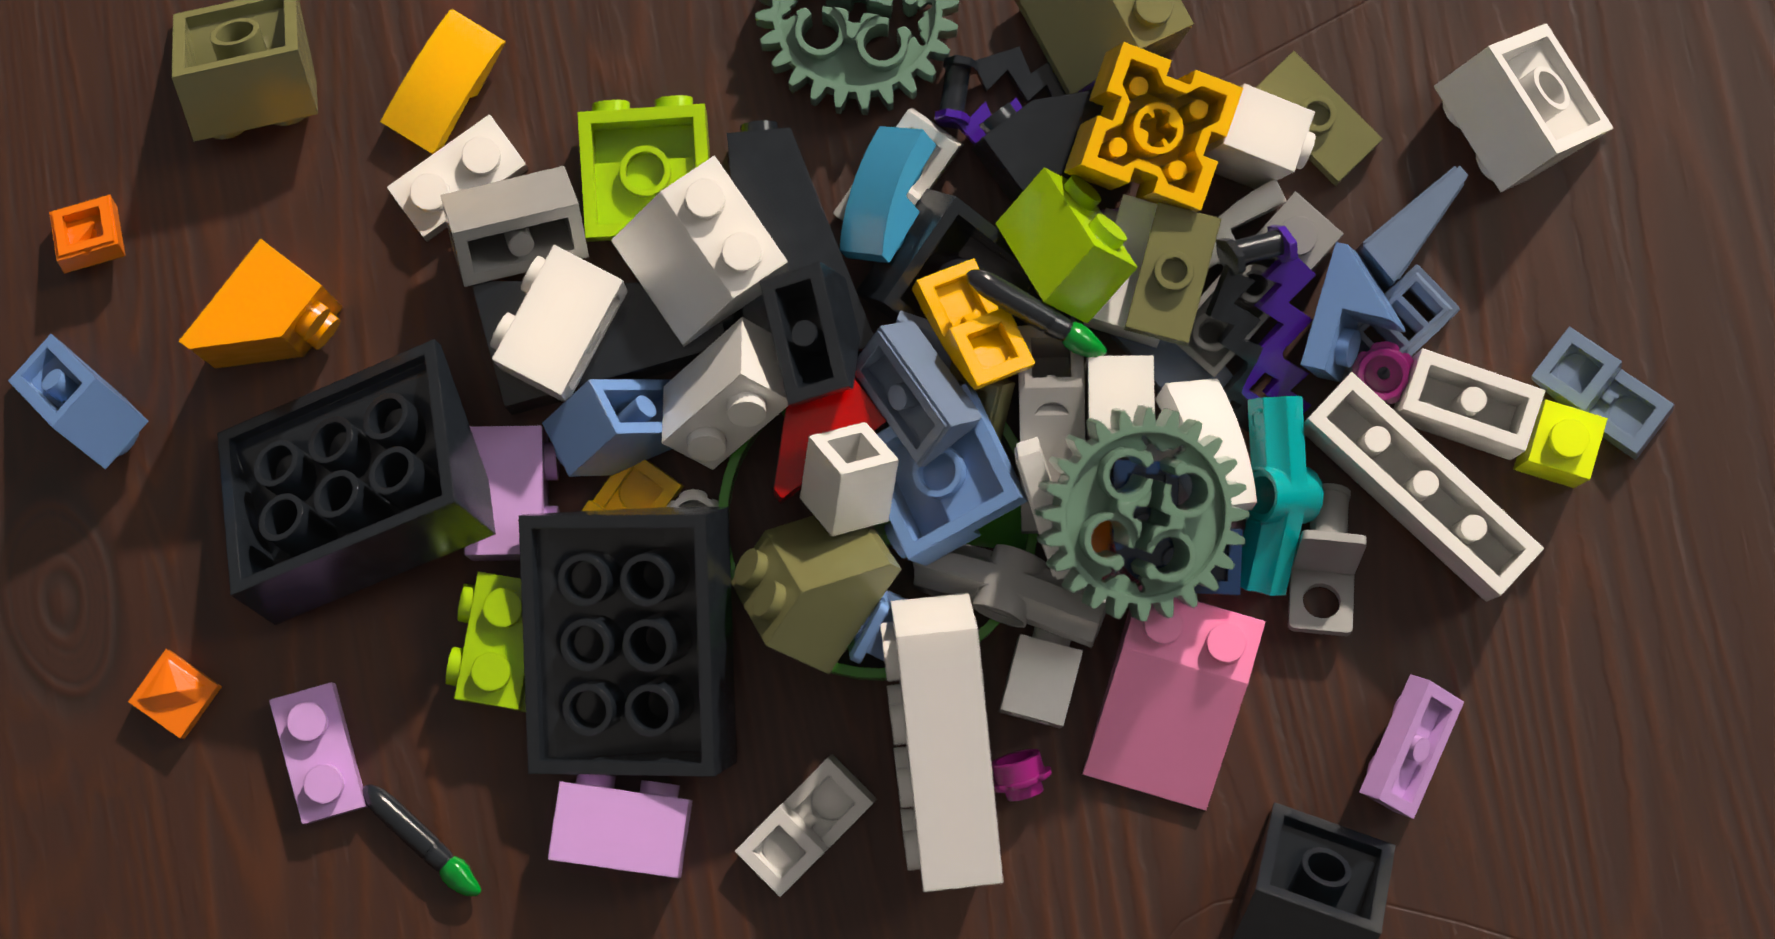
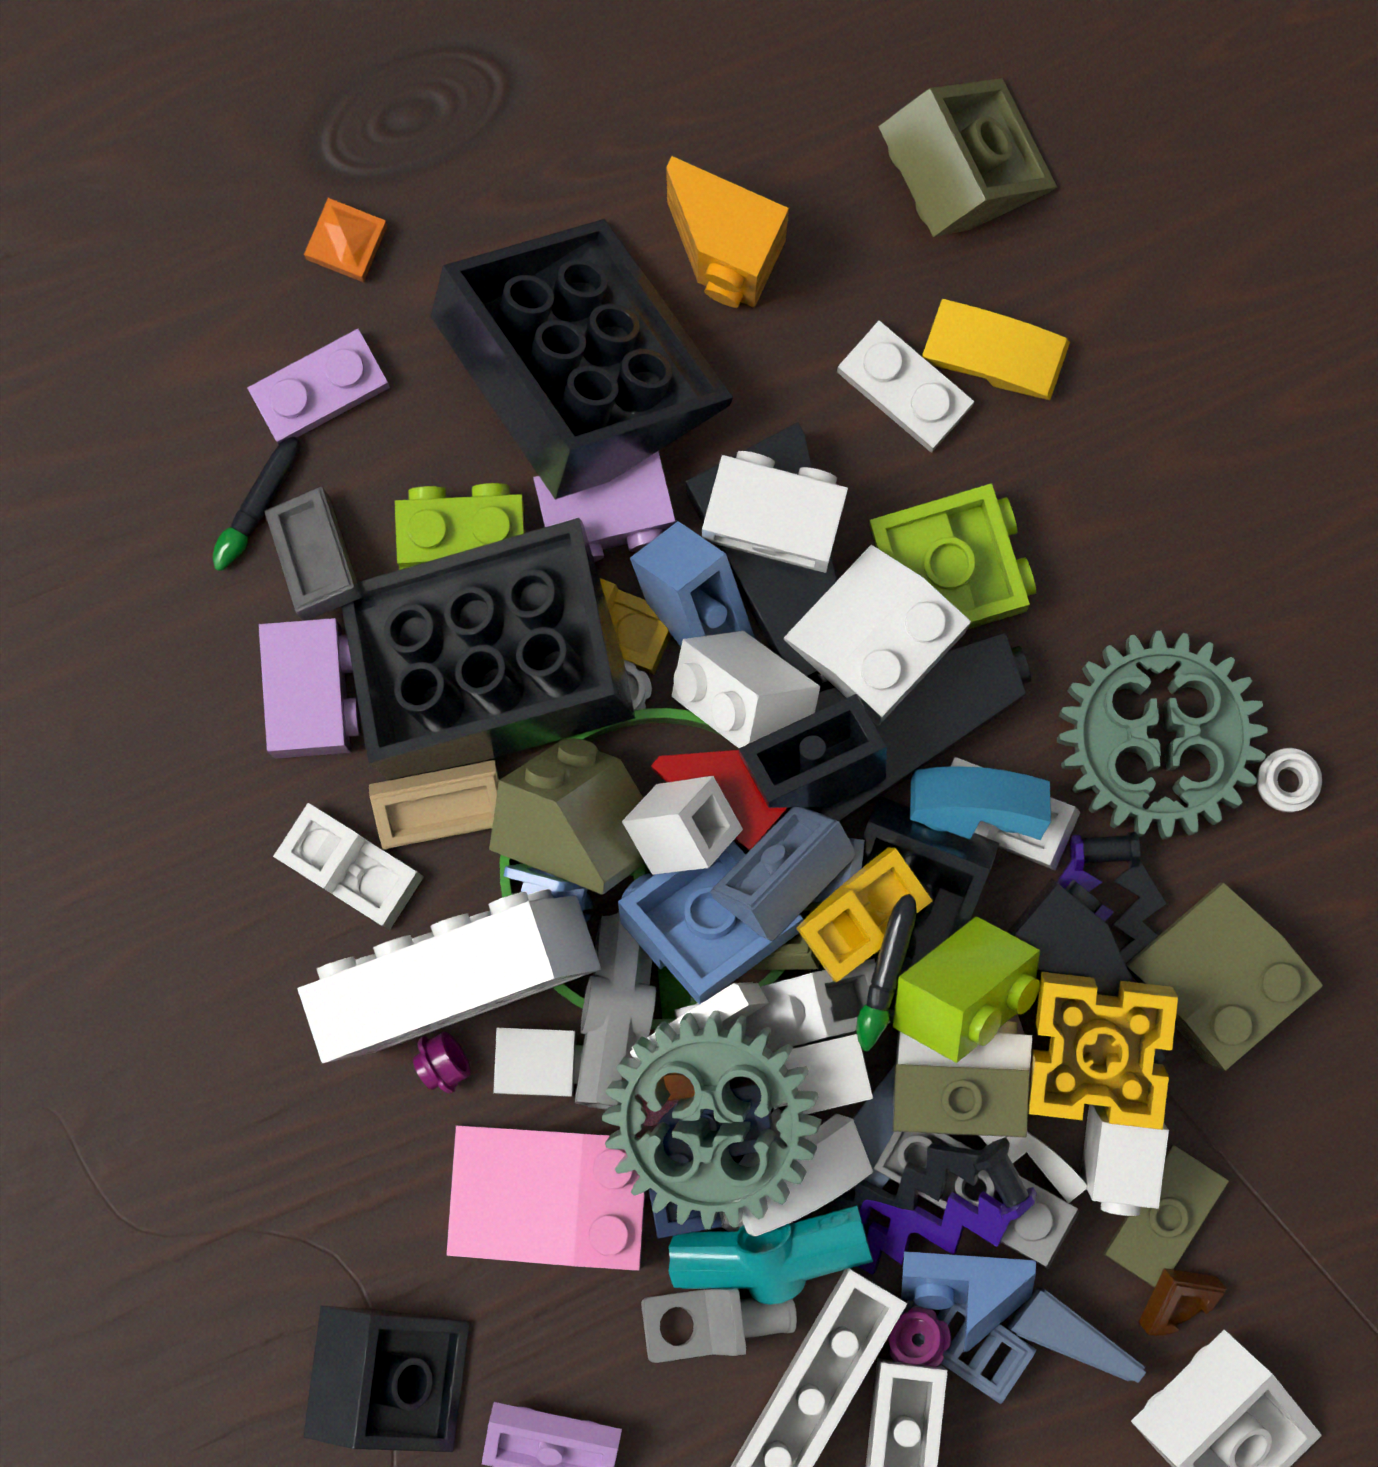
camera: 80 degrees right, 0 degrees up
(78, 402) = (601, 81): medium blue slope -> none
(87, 234) = (767, 49): orange tile -> none
(488, 792) = (312, 554): none -> flat silver tile
(512, 221) = (867, 447): light grey brick -> none
(766, 722) = (435, 804): none -> tan tile
(1394, 124) = (1178, 1298): none -> reddish brown tile

